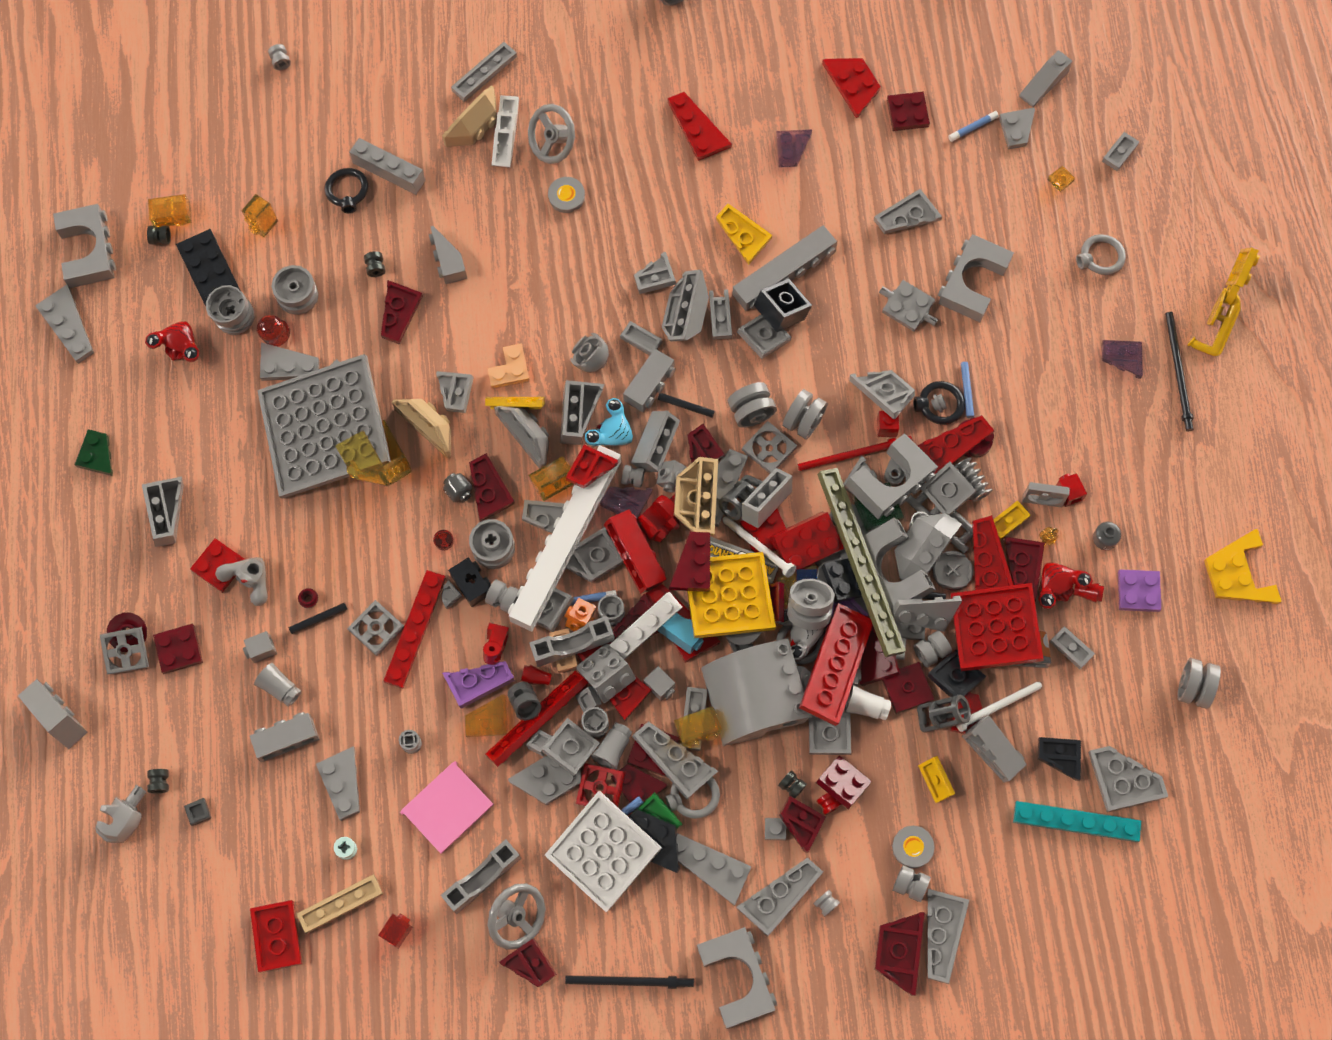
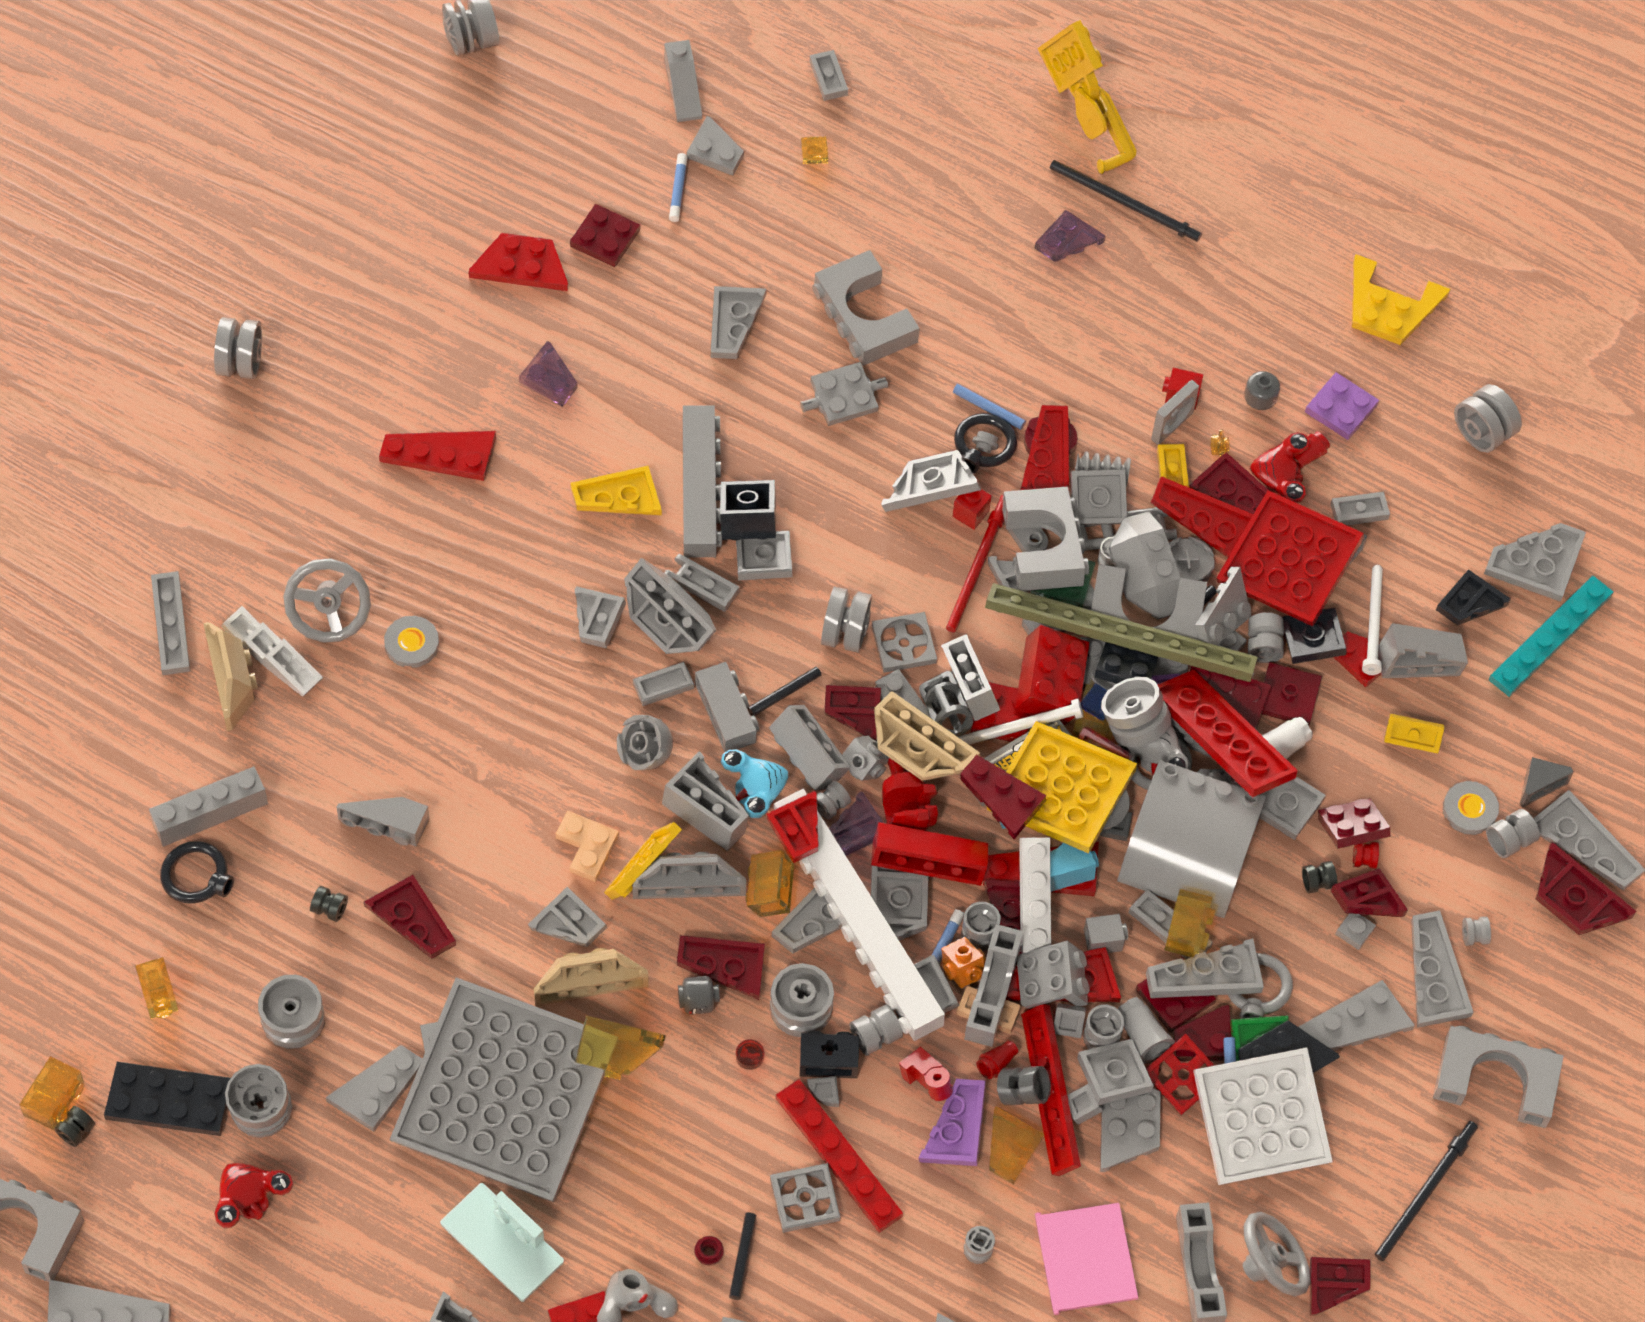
camera: 60 degrees left, 10 degrees down
(239, 488) = (503, 1240): none -> light aqua bracket
(271, 330) = (323, 1072): clear red helmet -> none
(805, 414) = (900, 574): light grey wheel -> none
(939, 714) = (1344, 681): dark grey piece -> none
(965, 879) = (1542, 779): none -> dark grey slope
(1086, 260) = (929, 193): light grey piece -> none

